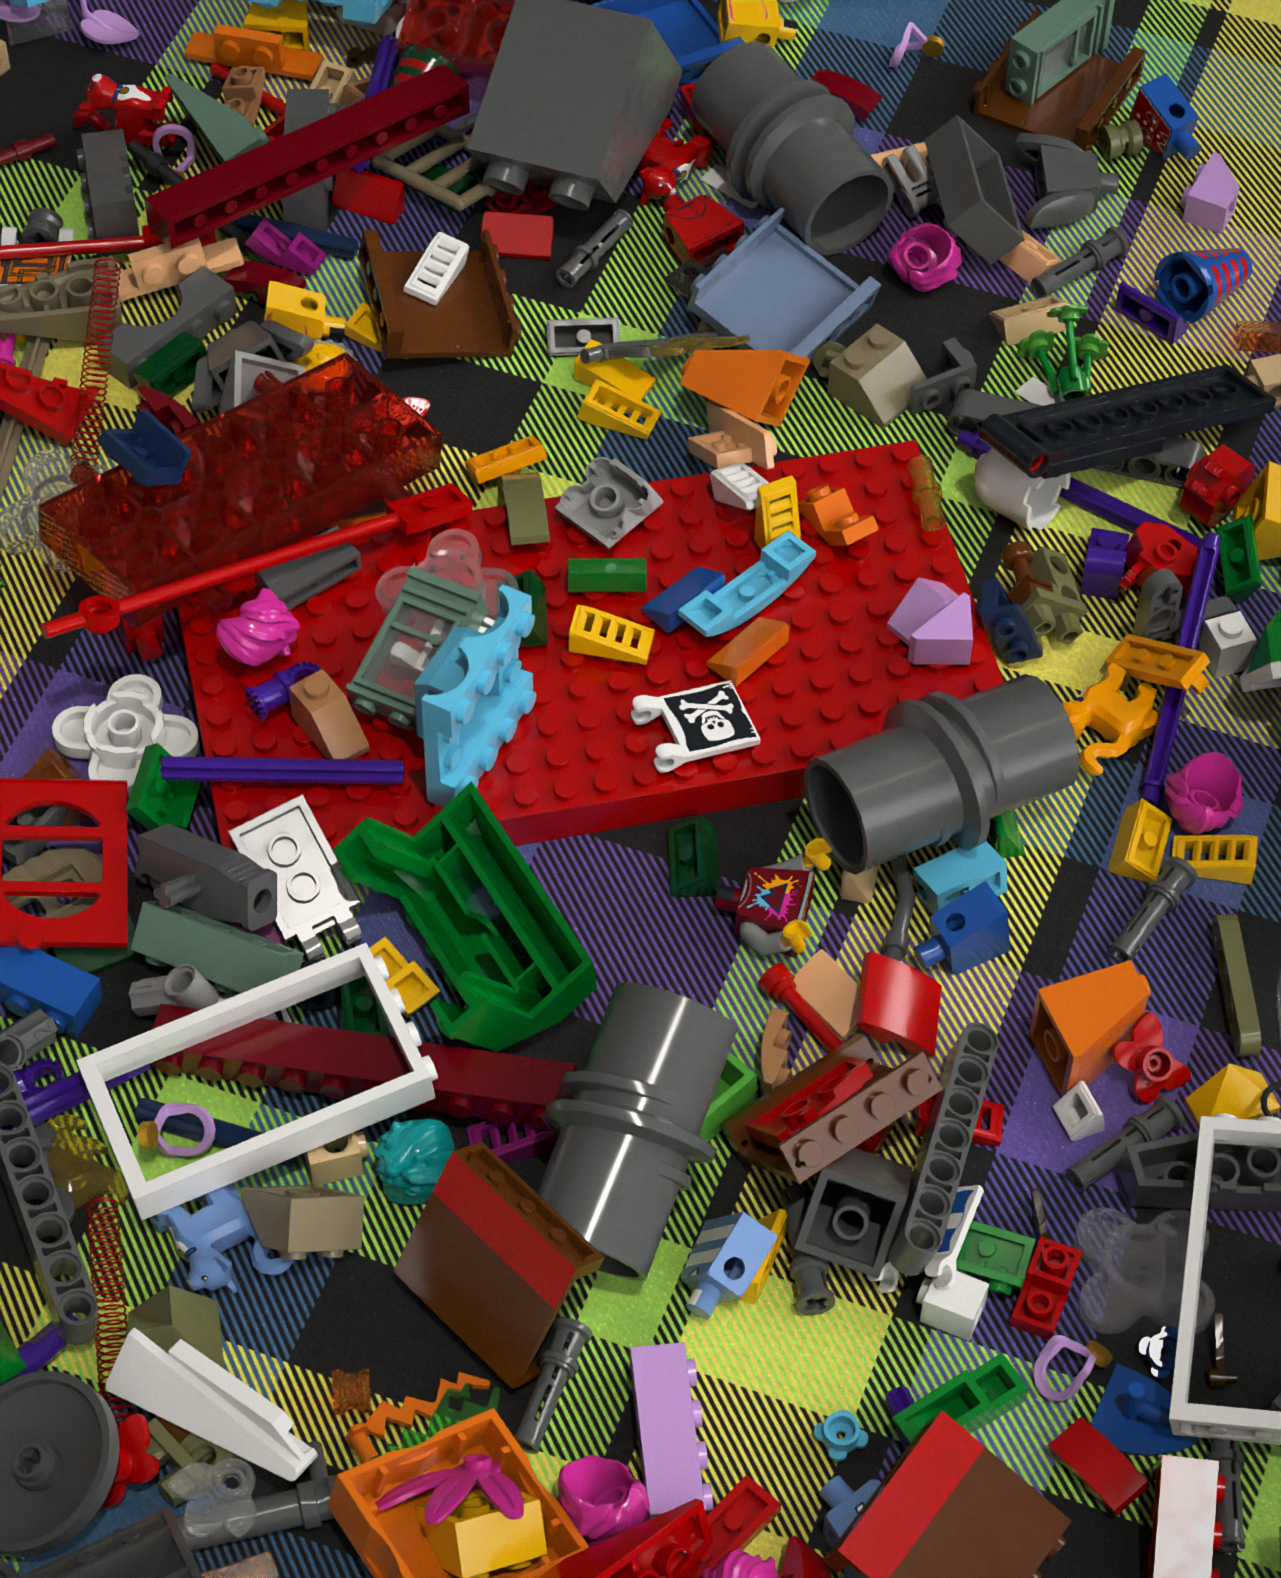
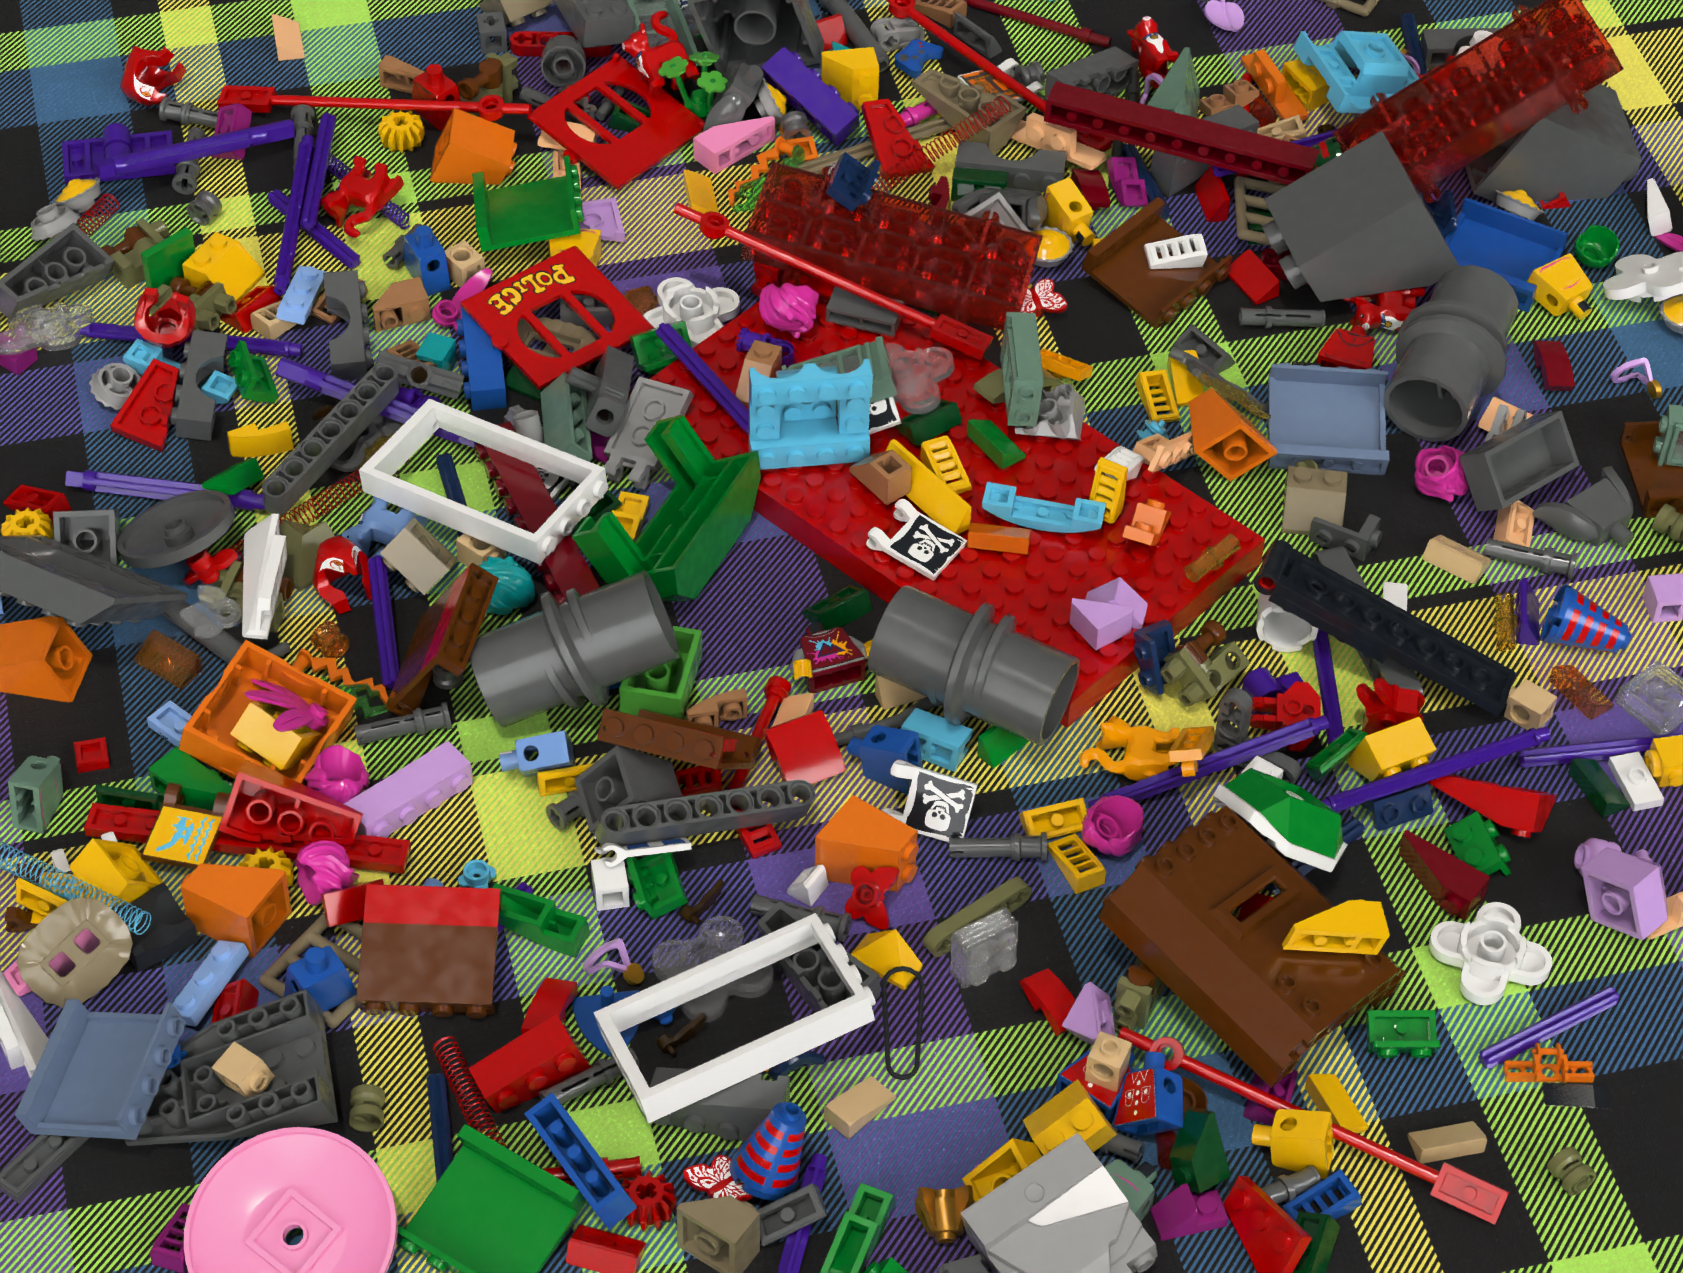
camera: 55 degrees right, 5 degrees down
(149, 1130) = (418, 462): lavender piece -> none
(246, 1303) = (334, 560): none -> red piece
(279, 83) = (1263, 112): none -> clear red cone
(371, 1314) = (383, 621): none -> dark purple axle
(556, 479) = (1021, 369): none -> sand green door
(581, 693) = (884, 475): none -> medium nougat slope
(628, 670) = (933, 494): none -> yellow slope
(665, 606) = (1025, 487): blue slope -> none
(673, 445) = (1152, 428): none -> medium azure wheel
(1045, 1288) = (668, 923): red slope -> none
(1069, 930) = (935, 803): none -> flag
(1071, 381) = (1414, 597): plant -> none
(1149, 333) = (1505, 622): none -> clear yellow pin

